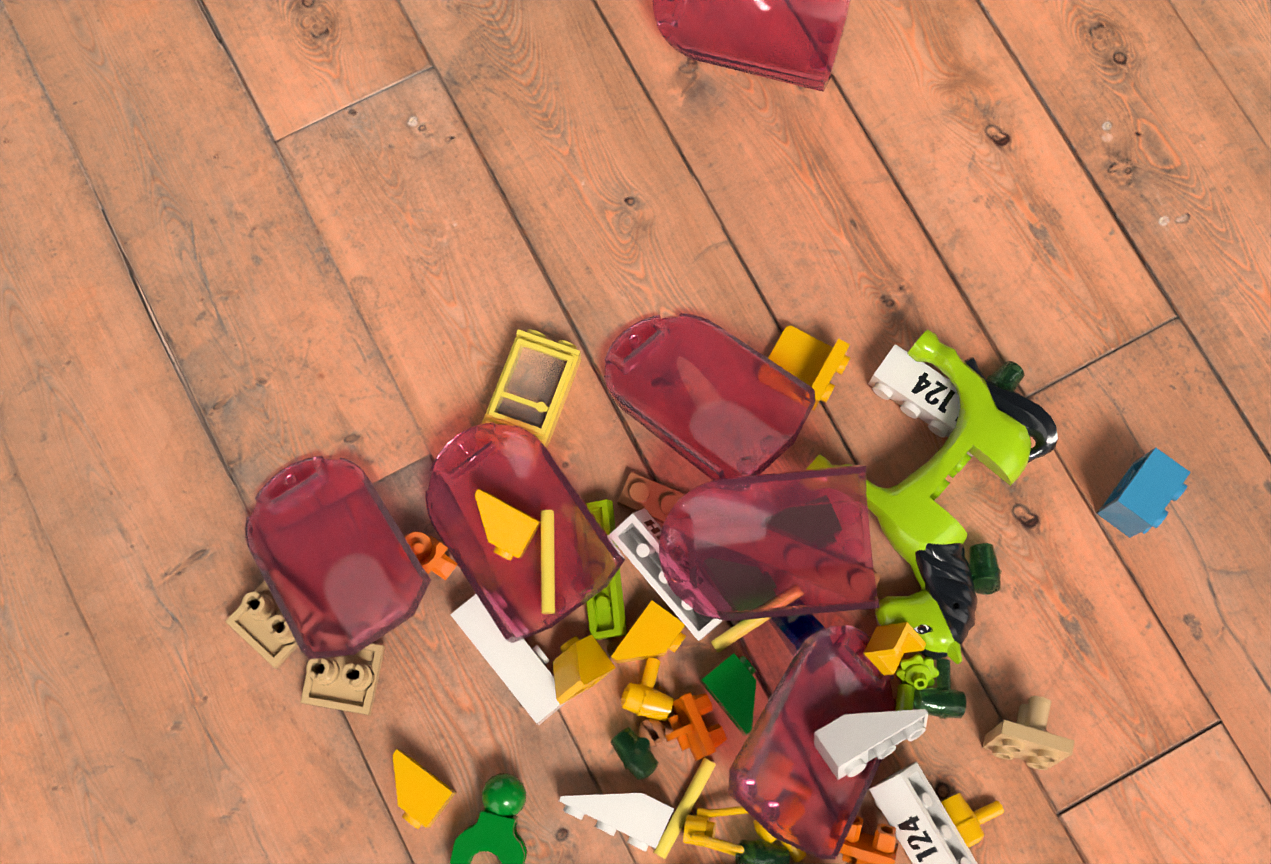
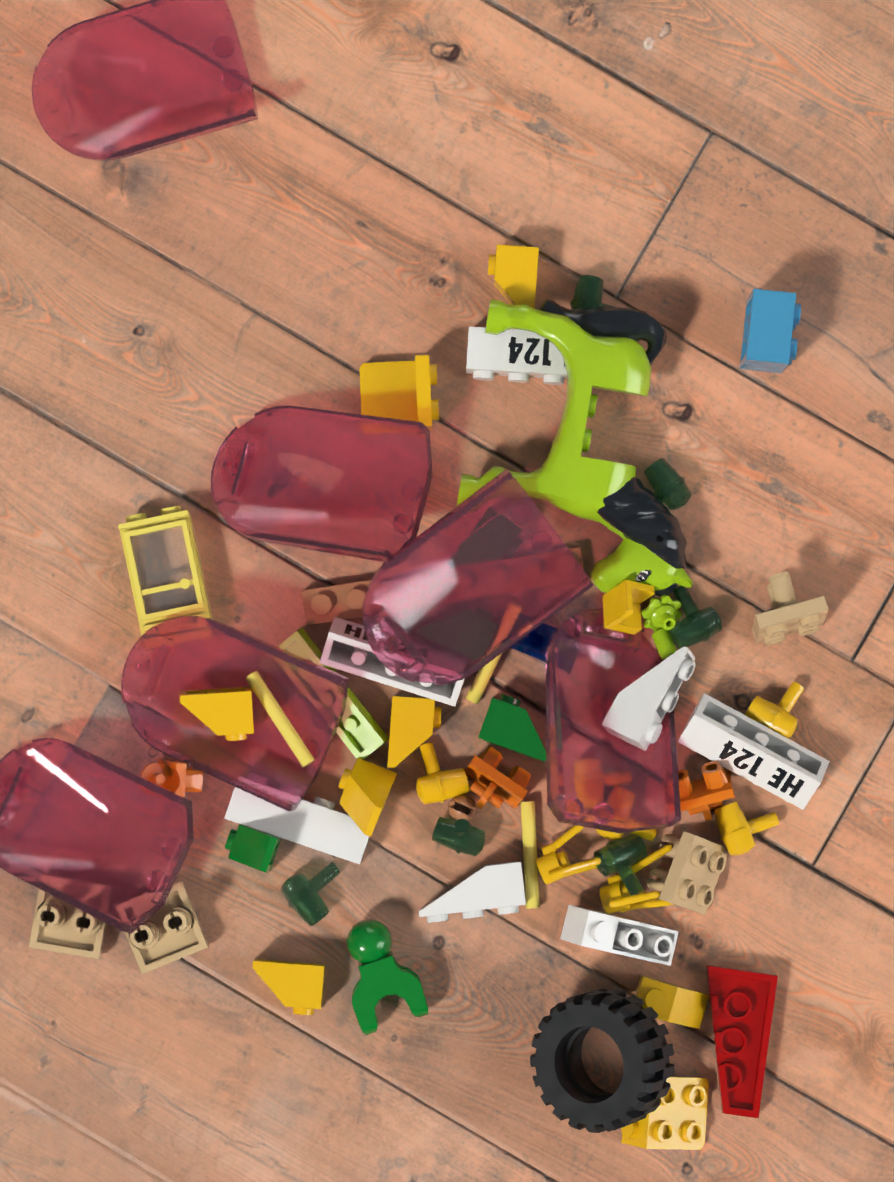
camera: 30 degrees left, 10 degrees up
(458, 655) = (252, 847): none -> green slope
(475, 723) = (304, 895): none -> clear green piece
(957, 324) = (515, 273): none -> yellow slope

